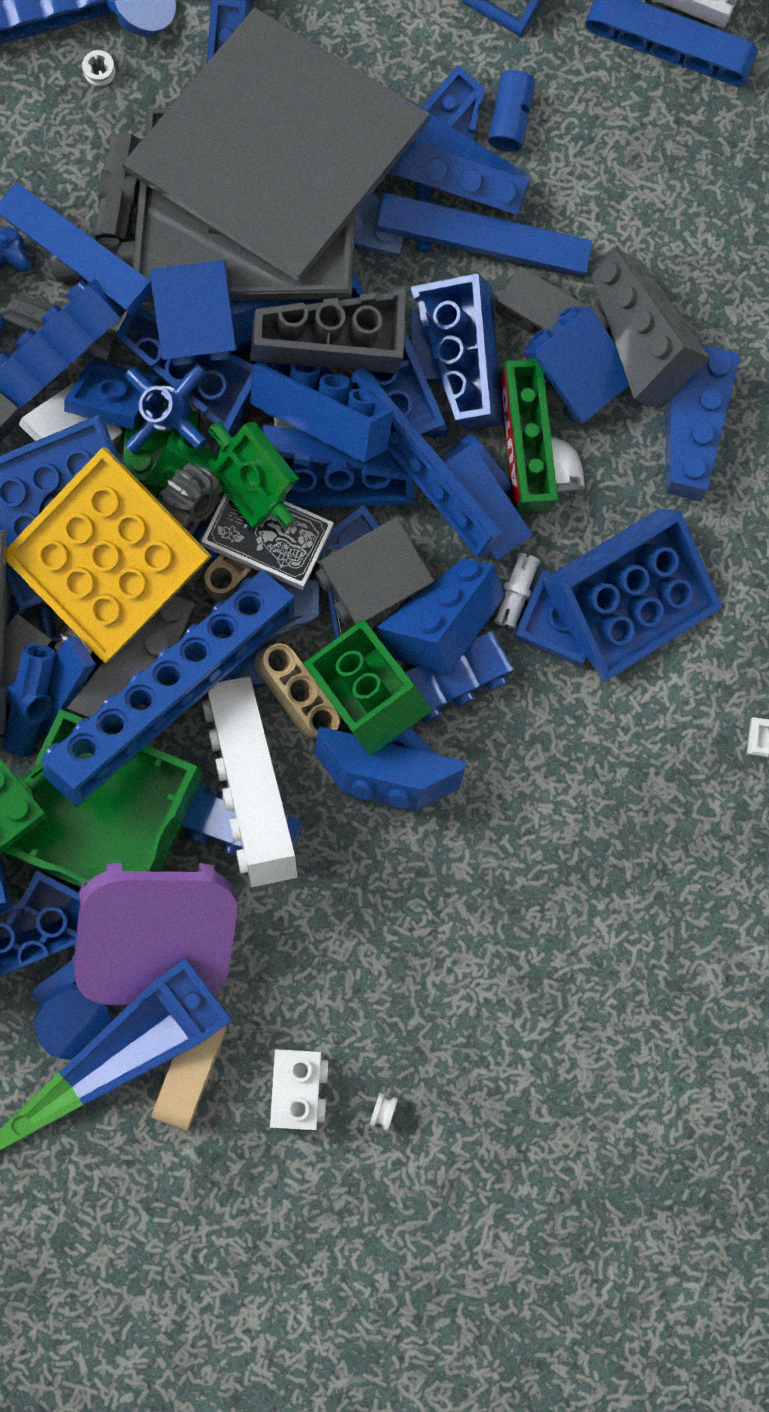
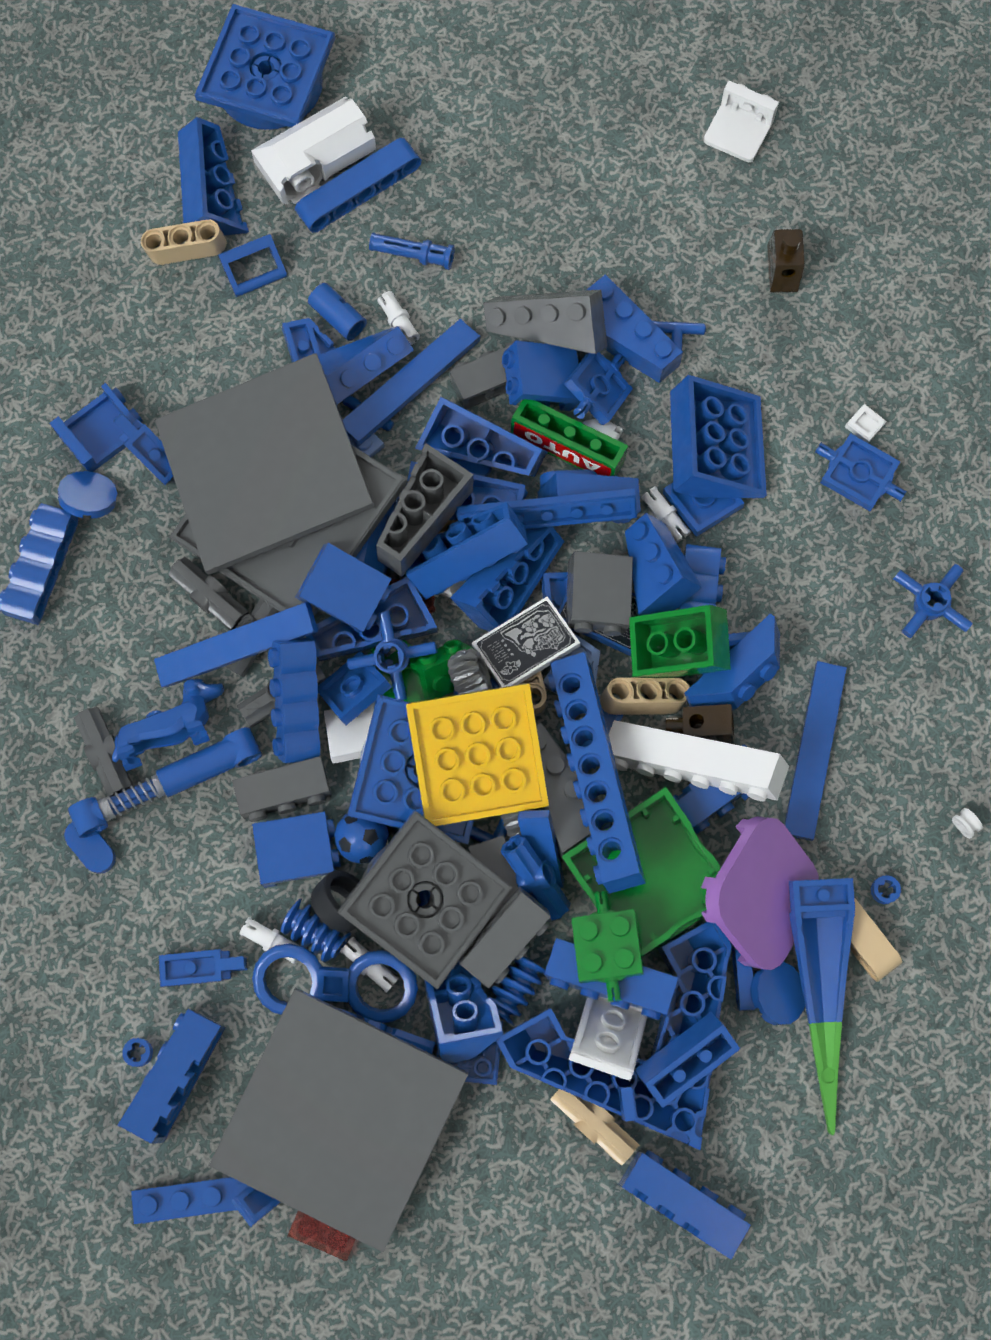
camera: 50 degrees left, 5 degrees down
(95, 57) = (116, 546): white bush -> none
(252, 1080) = (891, 897): none -> blue bush
(253, 474) = (485, 622): green plate -> none
(297, 1089) = (918, 870): white brick -> none
(311, 781) = (716, 721): none -> dark brown torso
(360, 905) = (814, 750): none -> blue tile
(548, 178) = (398, 316): none -> white pin
(595, 938) = (938, 592): none -> blue bar
(607, 429) = (598, 386): none -> blue plate
(646, 155) = (424, 252): none -> blue pin
(705, 765) = (860, 472): none -> blue plate
(738, 472) = (677, 330): none -> blue piece

